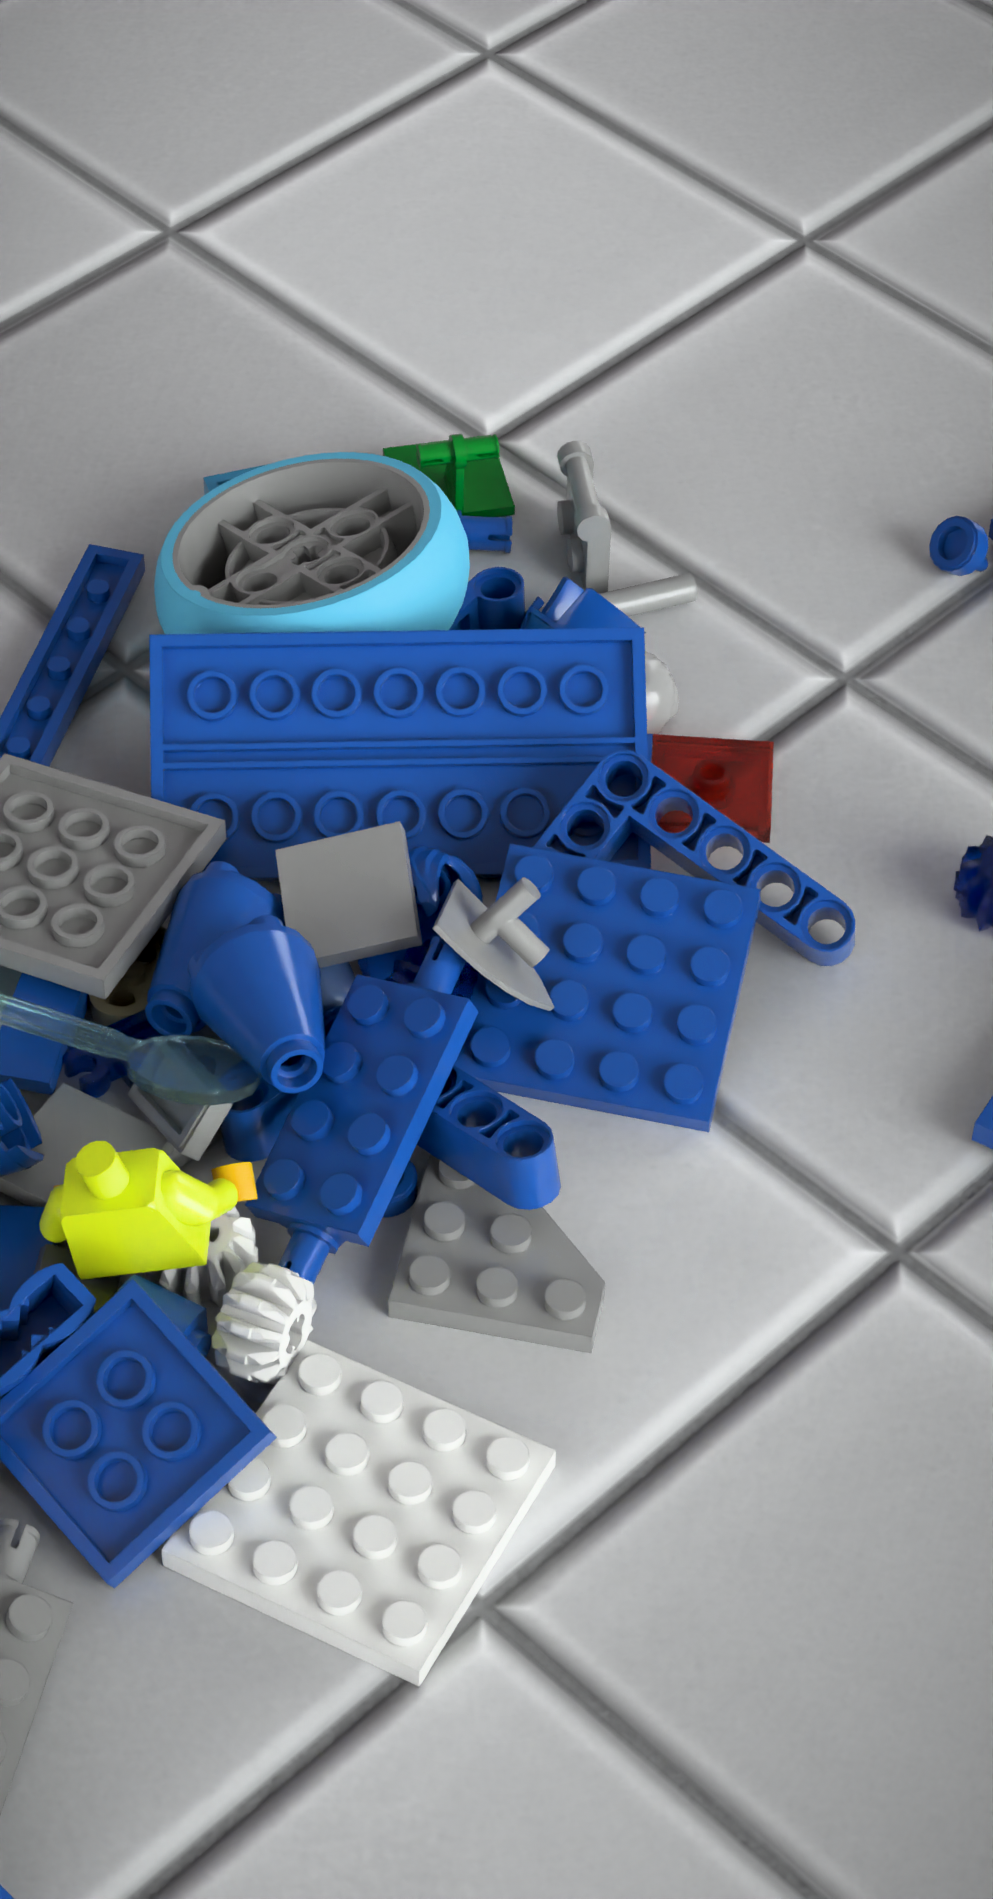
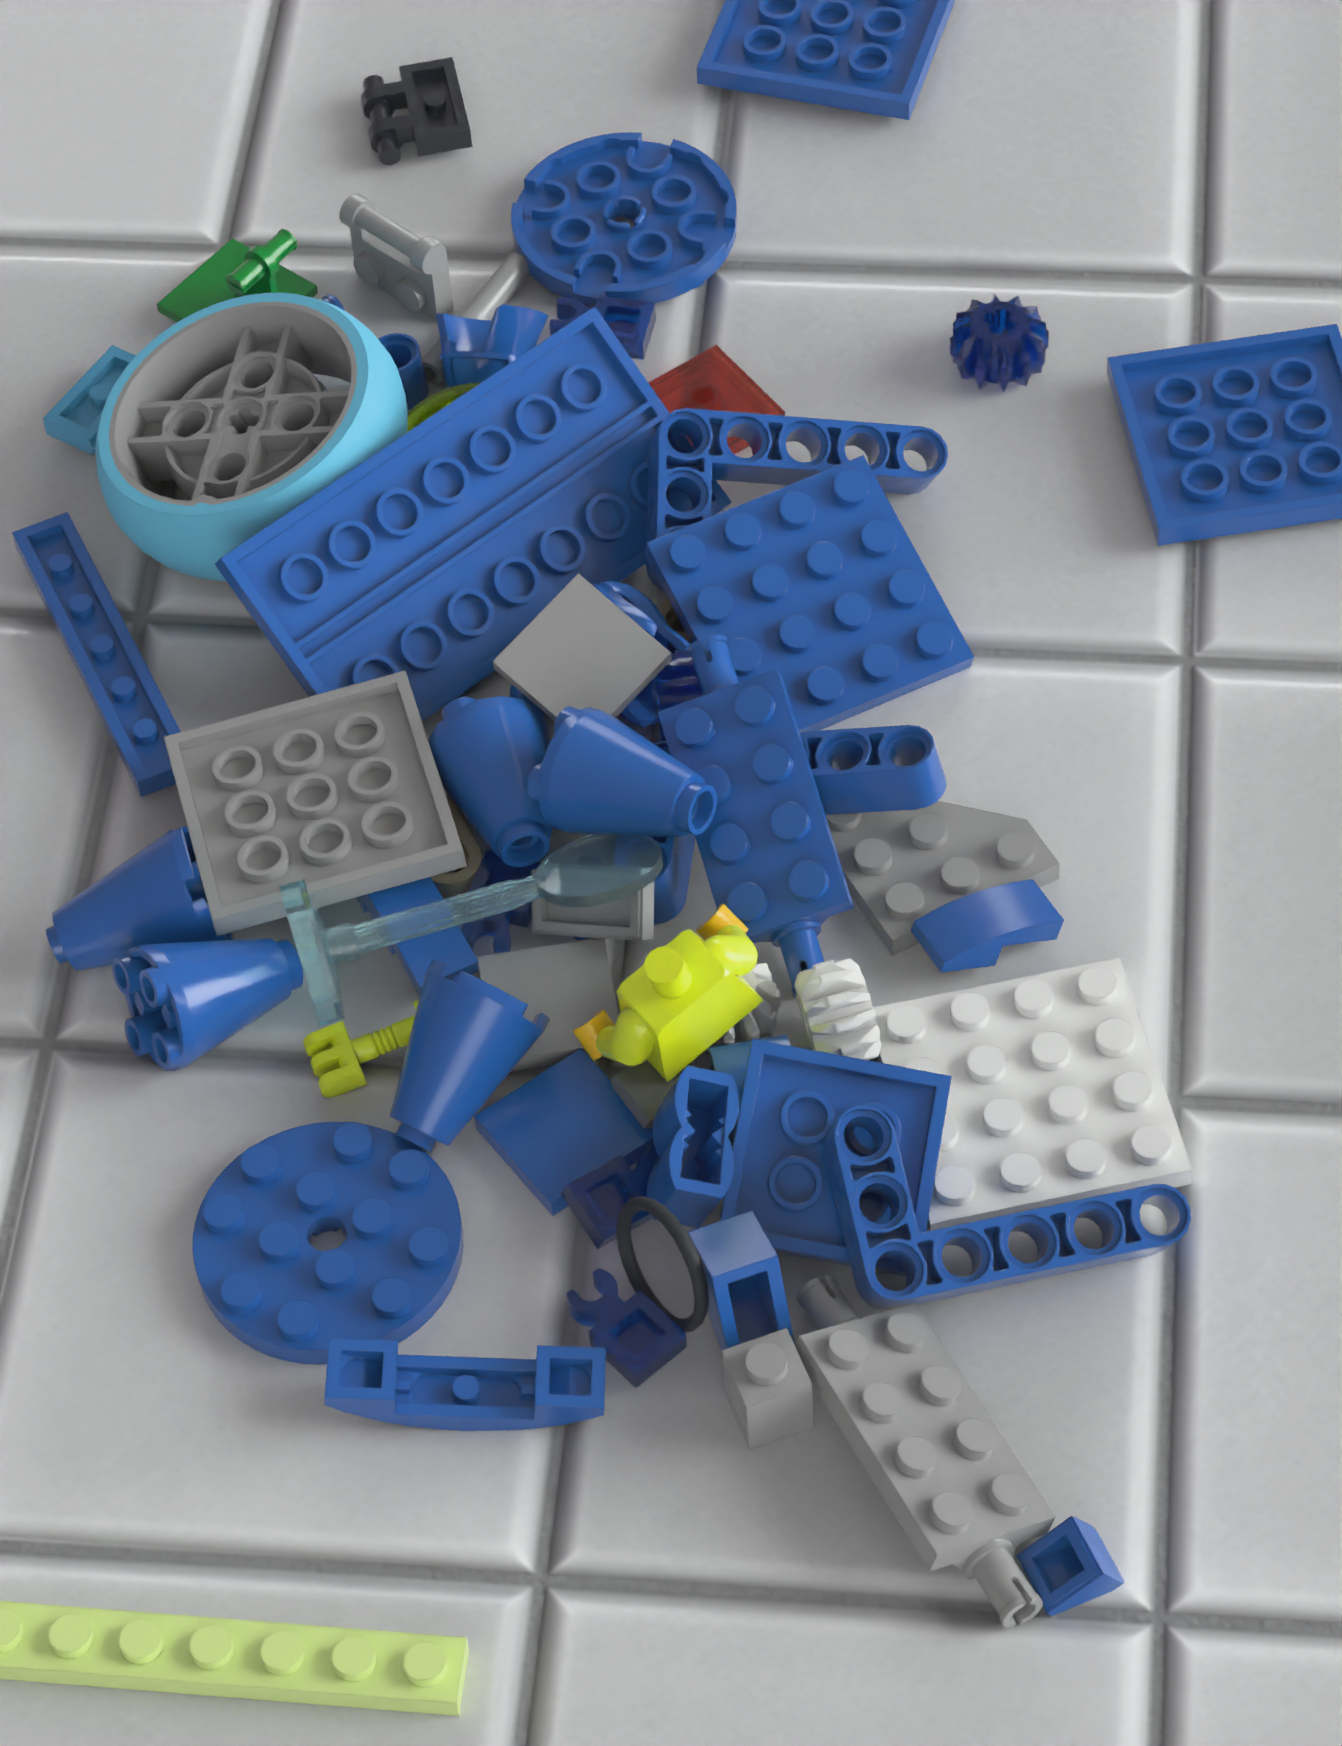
camera: 35 degrees left, 5 degrees up
(168, 1592) = (984, 1239): none -> blue beam
(460, 1335) = (977, 926): none -> blue slope
(496, 939) = (730, 598): light grey shield -> none
(704, 678) = (628, 319): none -> clear blue plate
(750, 432) = (434, 109): none -> black plate
(752, 614) = (672, 193): none -> blue plate
(959, 546) = (692, 104): blue tile -> none

